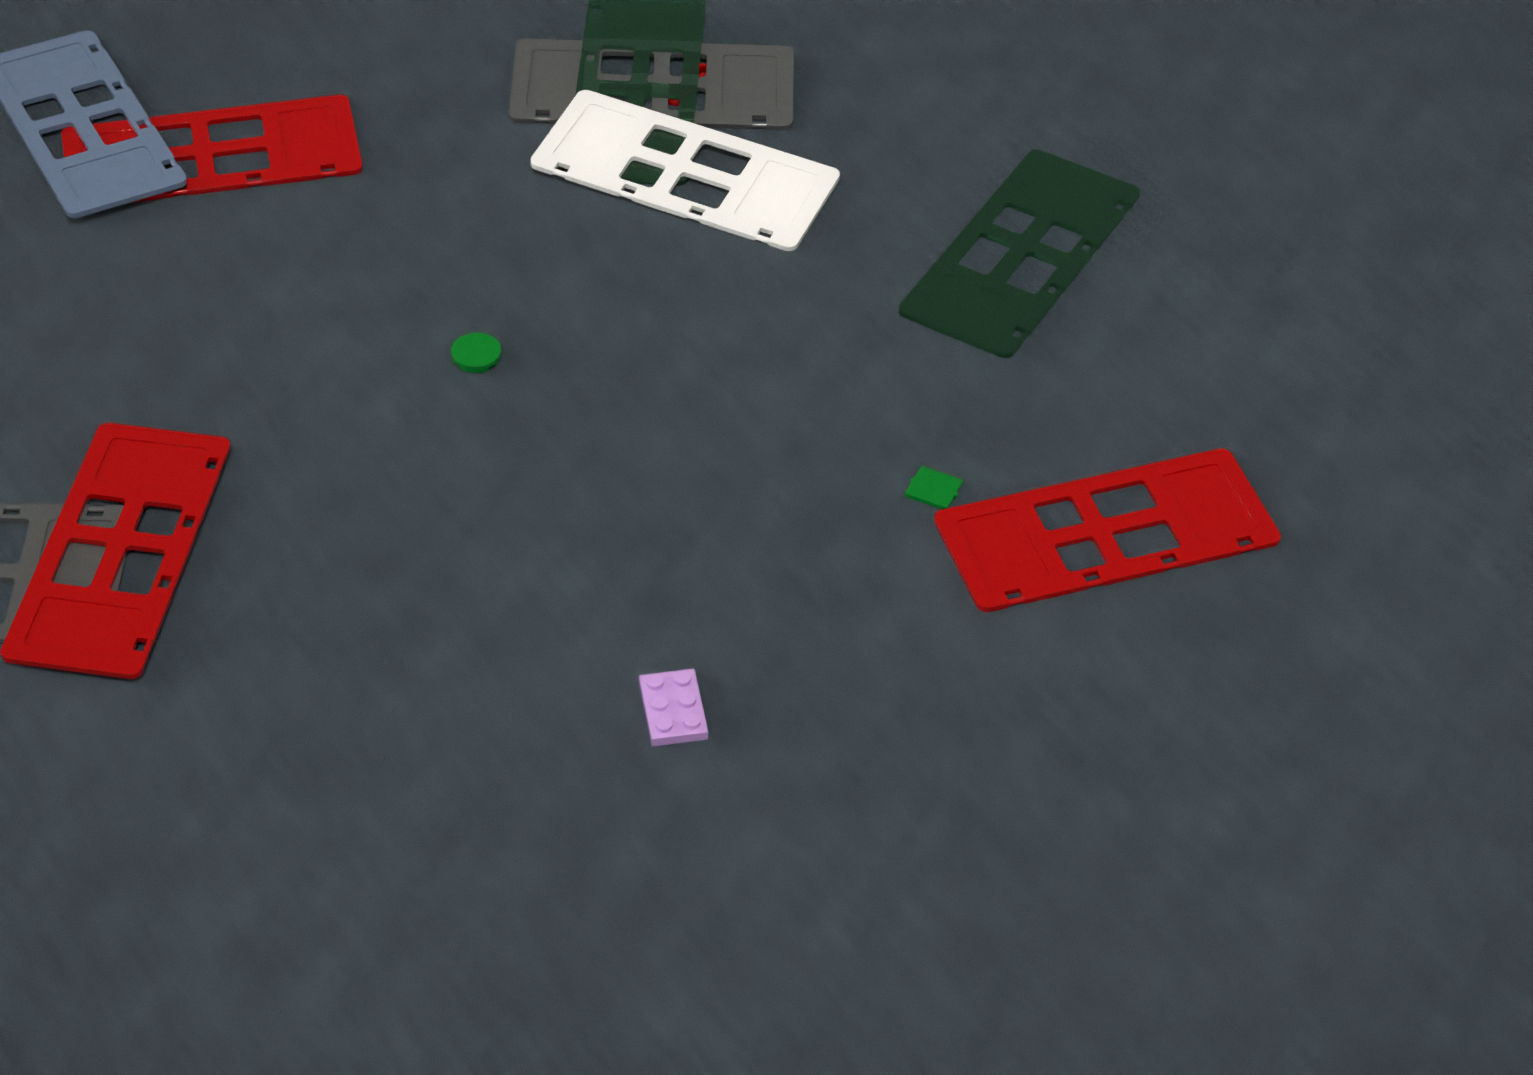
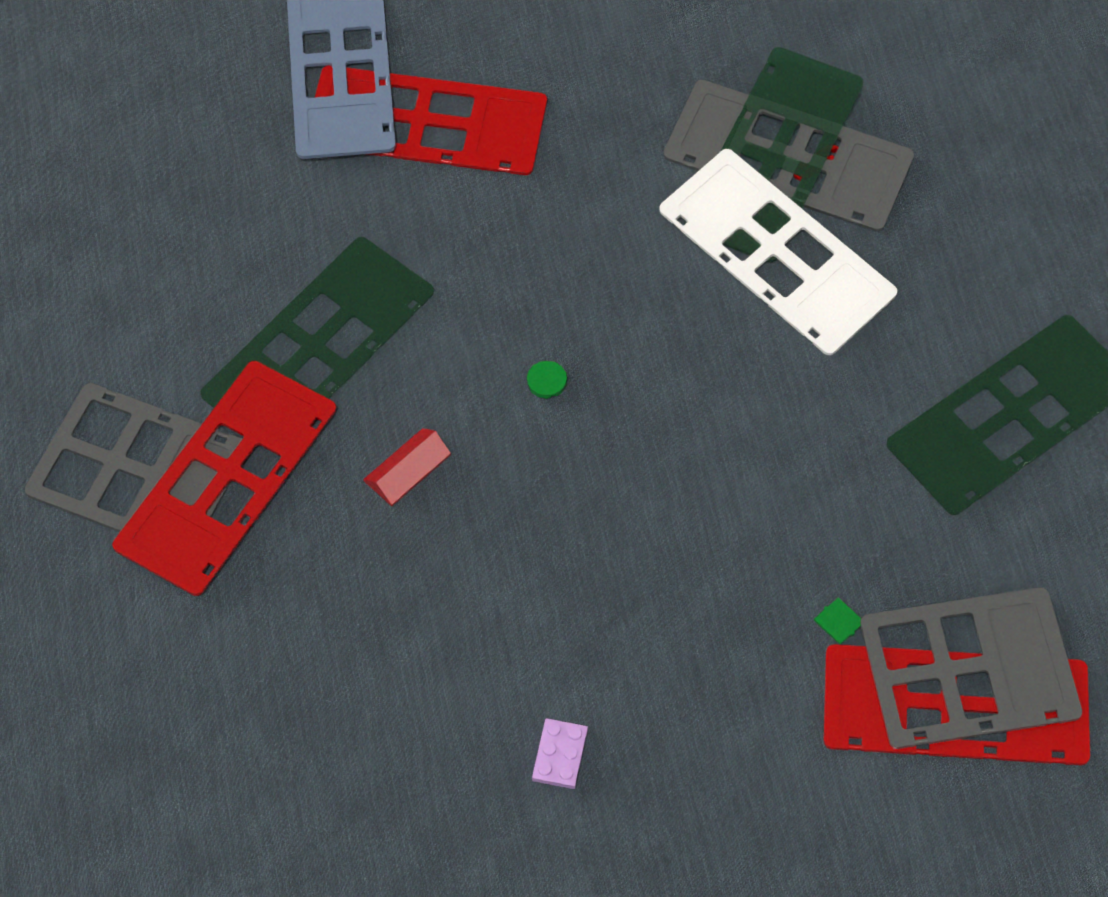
camera: 25 degrees right, 15 degrees up
(206, 320) = (365, 286): none -> clear green door
(347, 476) = (408, 466): none -> slope
(1144, 454) = (1019, 654): none -> dark grey door

